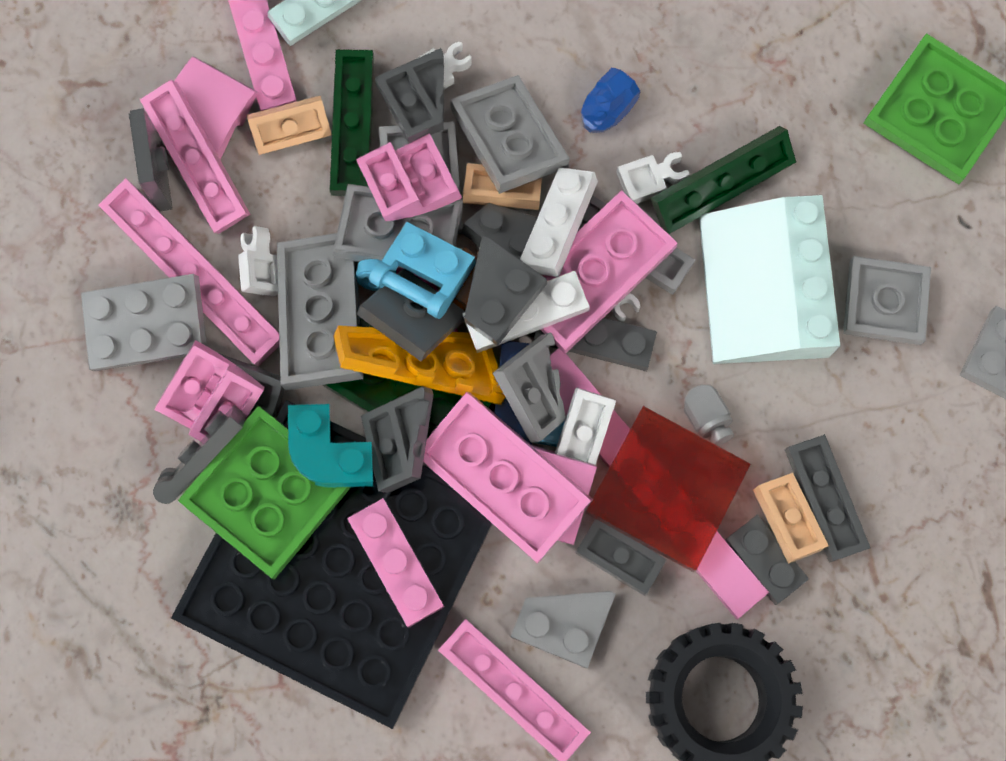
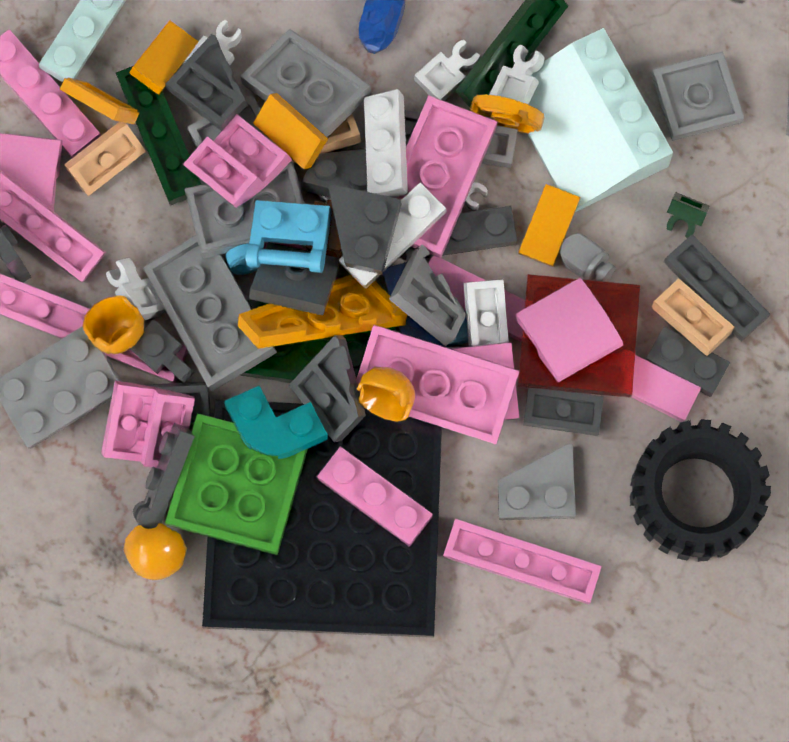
camera: 20 degrees left, 0 degrees up
(158, 524) = (155, 551): none -> light orange hair
(217, 285) = (113, 325): none -> light orange hair
(252, 328) = (159, 350): none -> dark grey plate
(307, 68) = (99, 100): none -> light orange tile
(385, 52) = (163, 57): none -> light orange tile
(448, 466) = (386, 393): none -> light orange hair
(473, 170) = (290, 130): none -> light orange tile
(660, 479) = (569, 329): none -> bright pink slope
(686, 366) = (549, 225): none -> light orange tile
(693, 239) = (508, 112): none -> light orange tile
(714, 216) = (518, 81): none -> white plate
(830, 408) = (688, 210): none -> dark green tile

